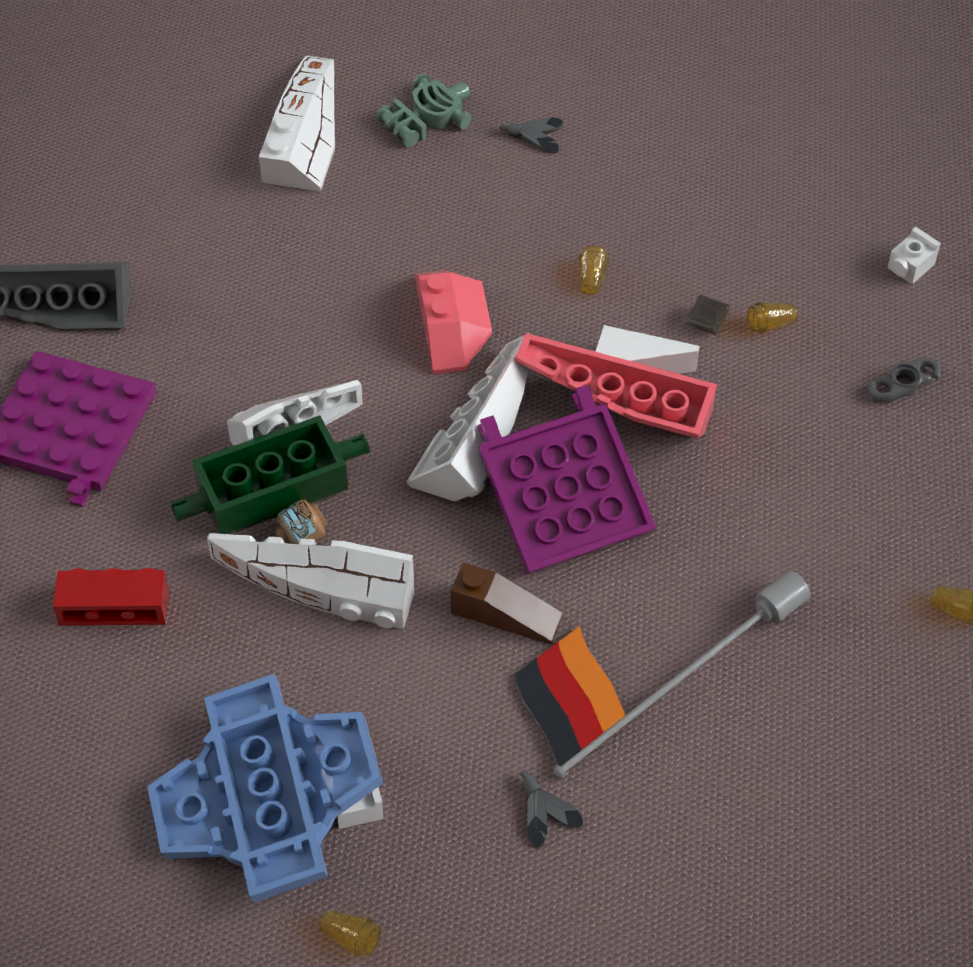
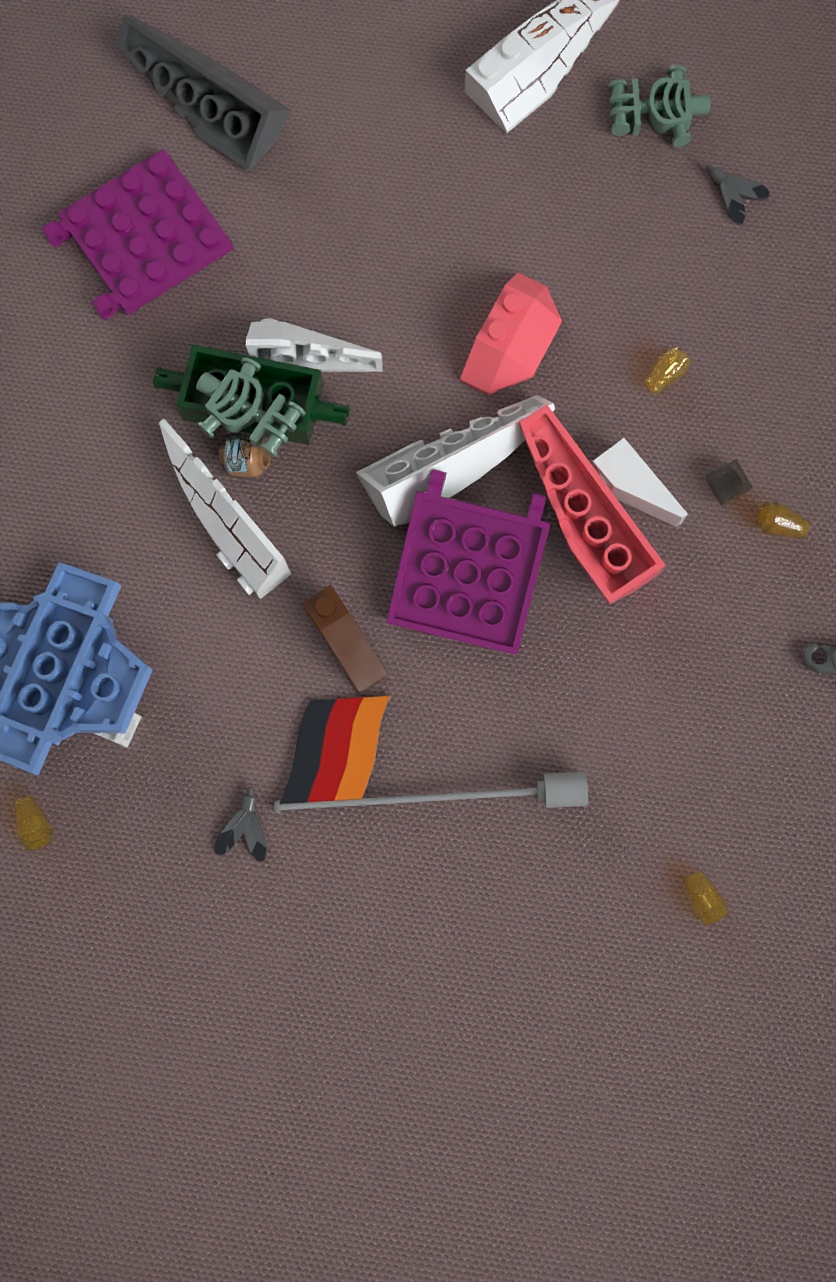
camera: 40 degrees right, 25 degrees up
(111, 597) = (62, 420): red brick -> none
(317, 471) = (227, 406): none -> sand green piece

